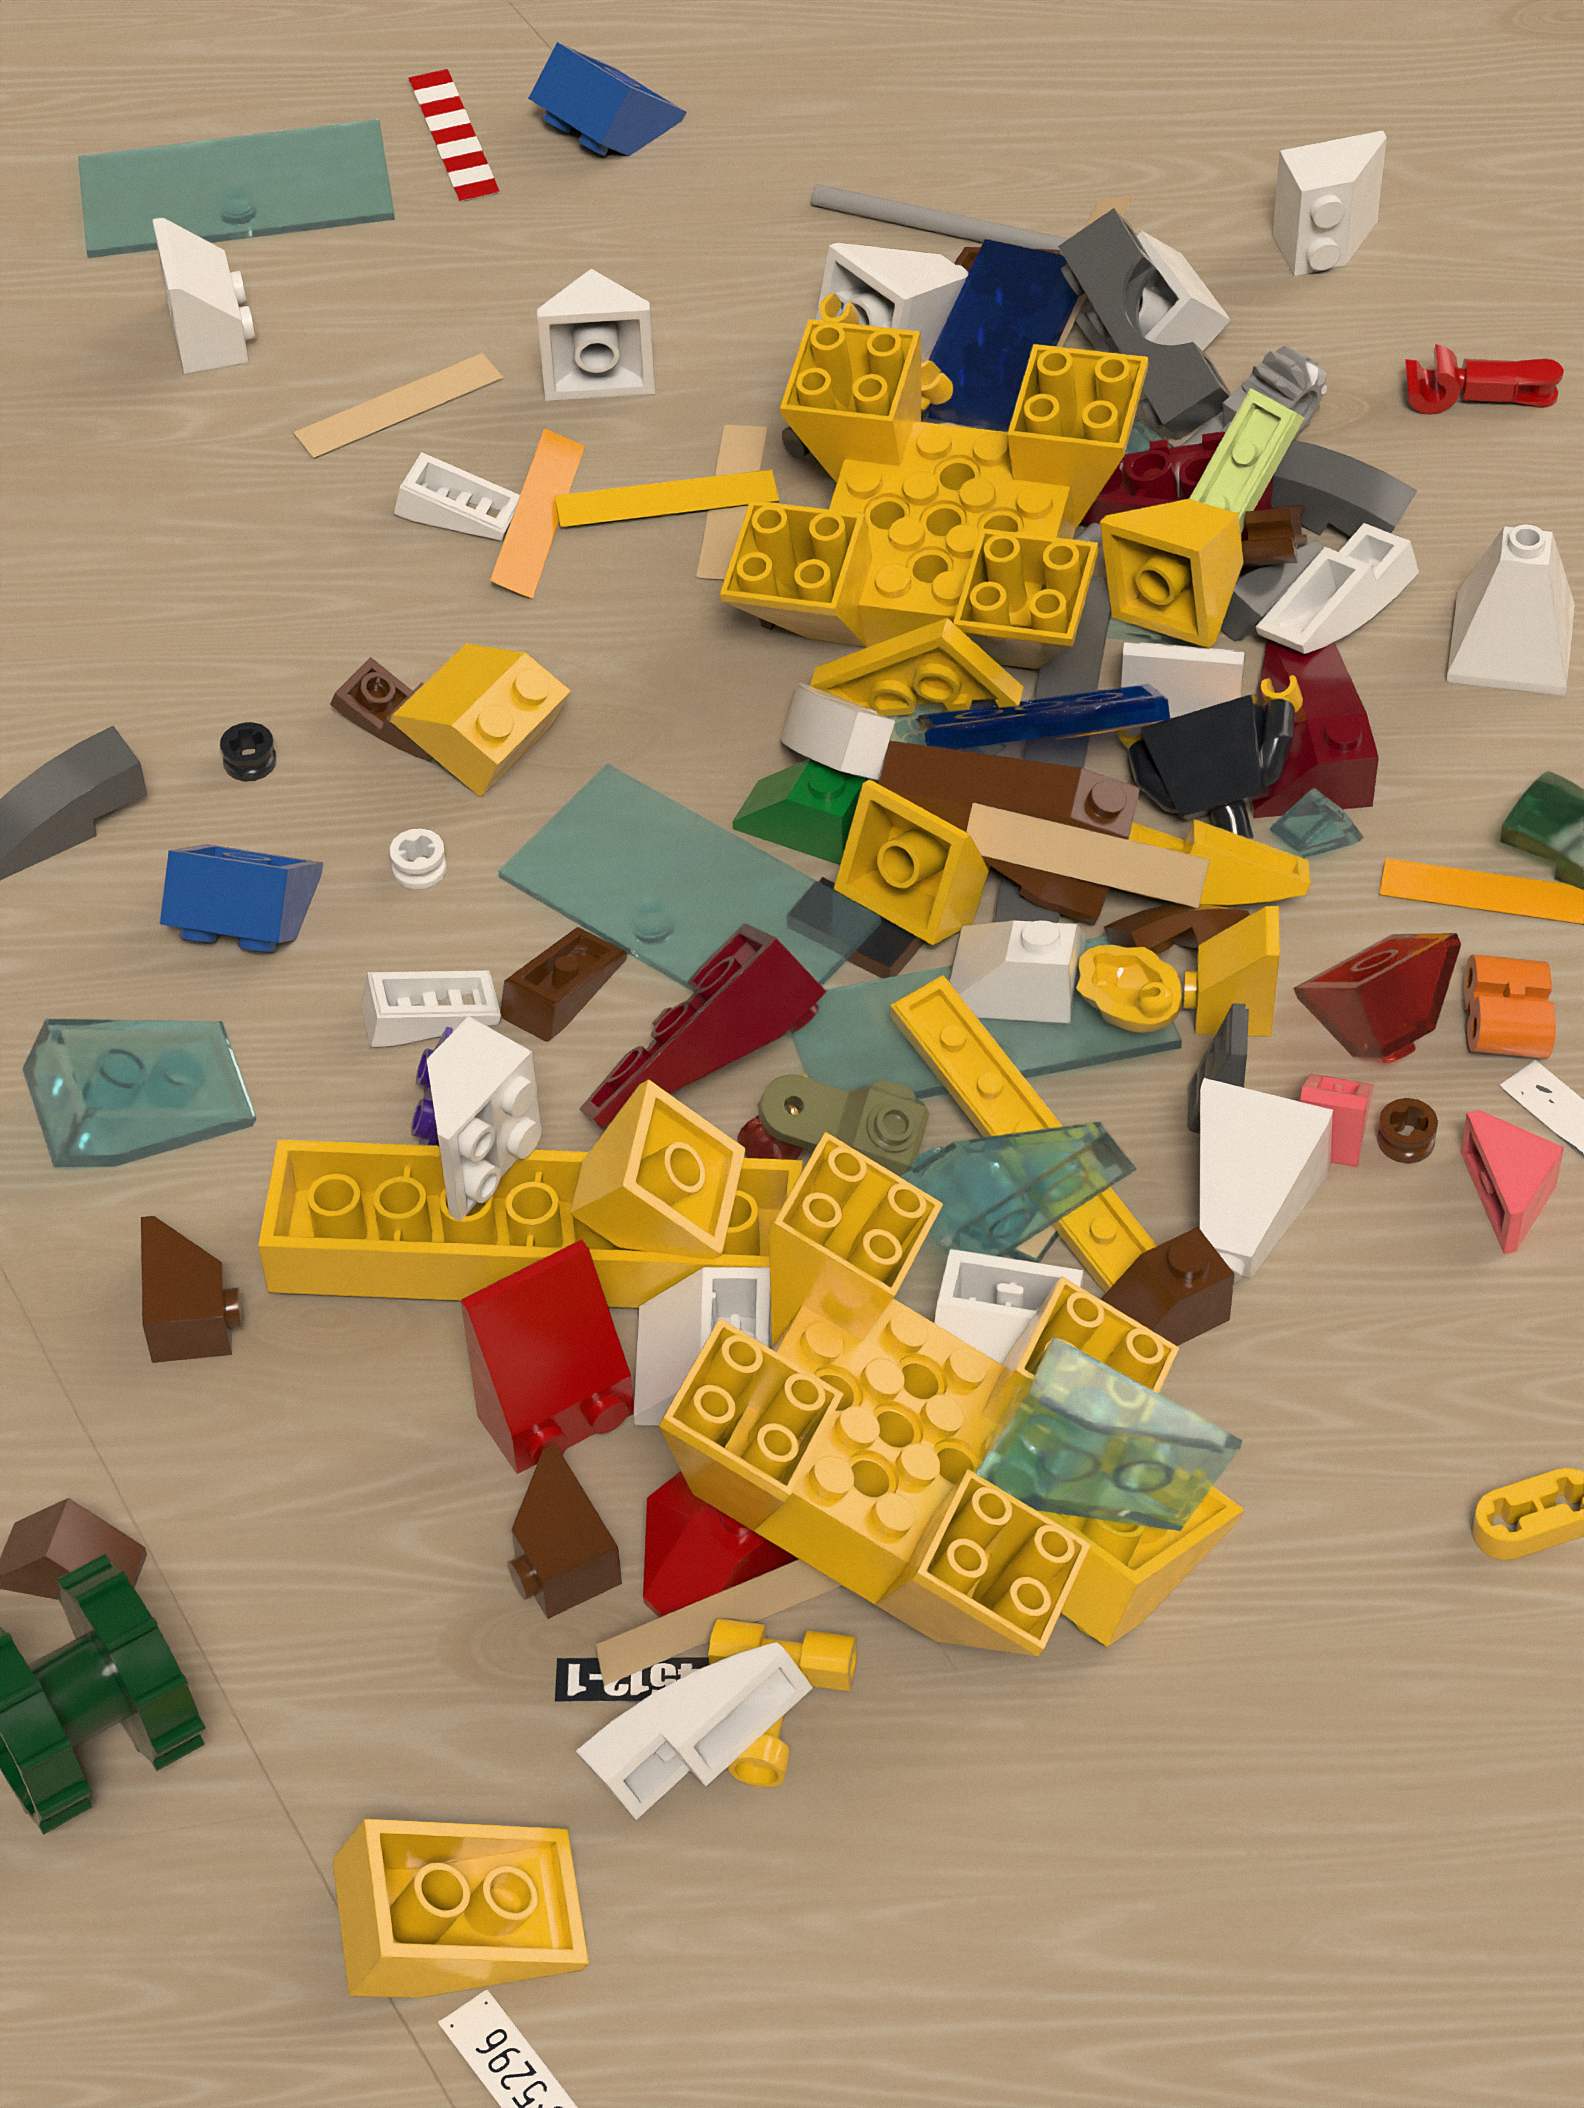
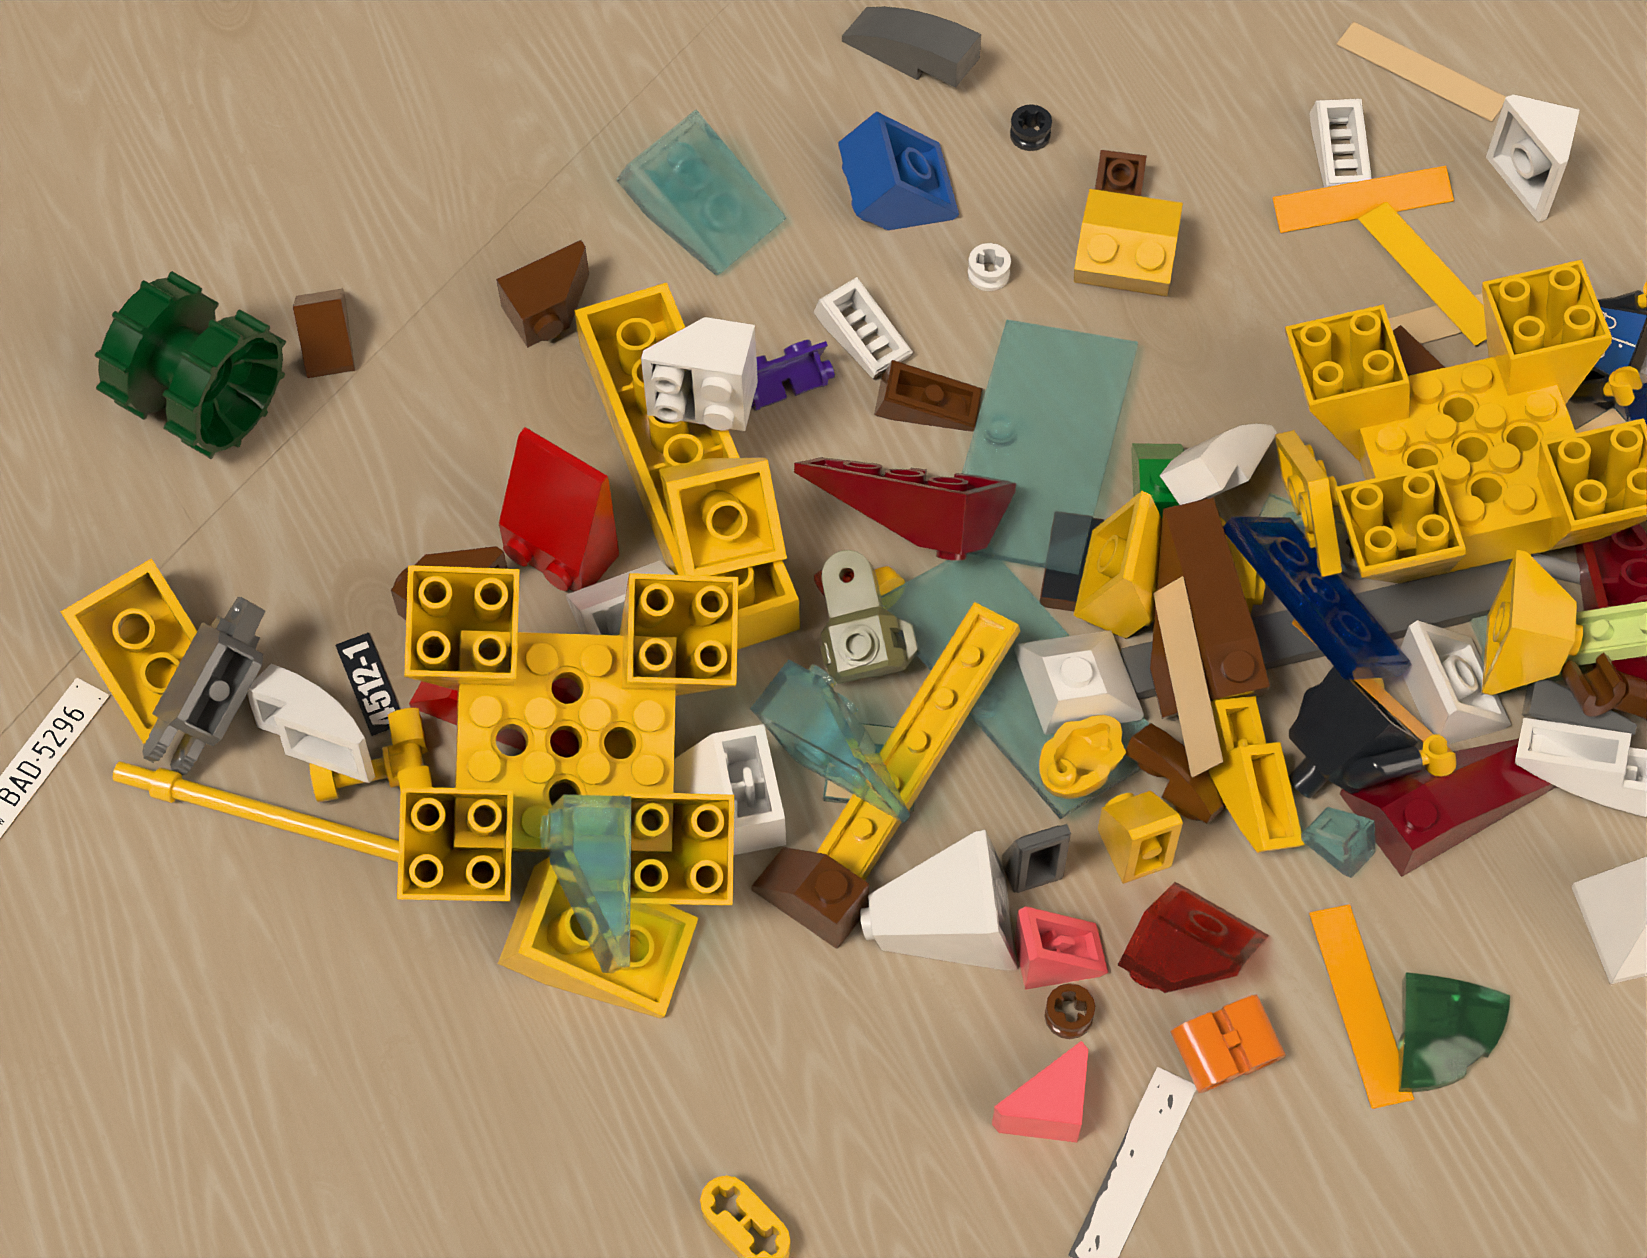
camera: 65 degrees right, 10 degrees up
(575, 1828) = (207, 686): none -> dark grey hinge
(673, 1944) = (169, 786): none -> yellow bar
(694, 1623) = (406, 693): tan sticker -> none

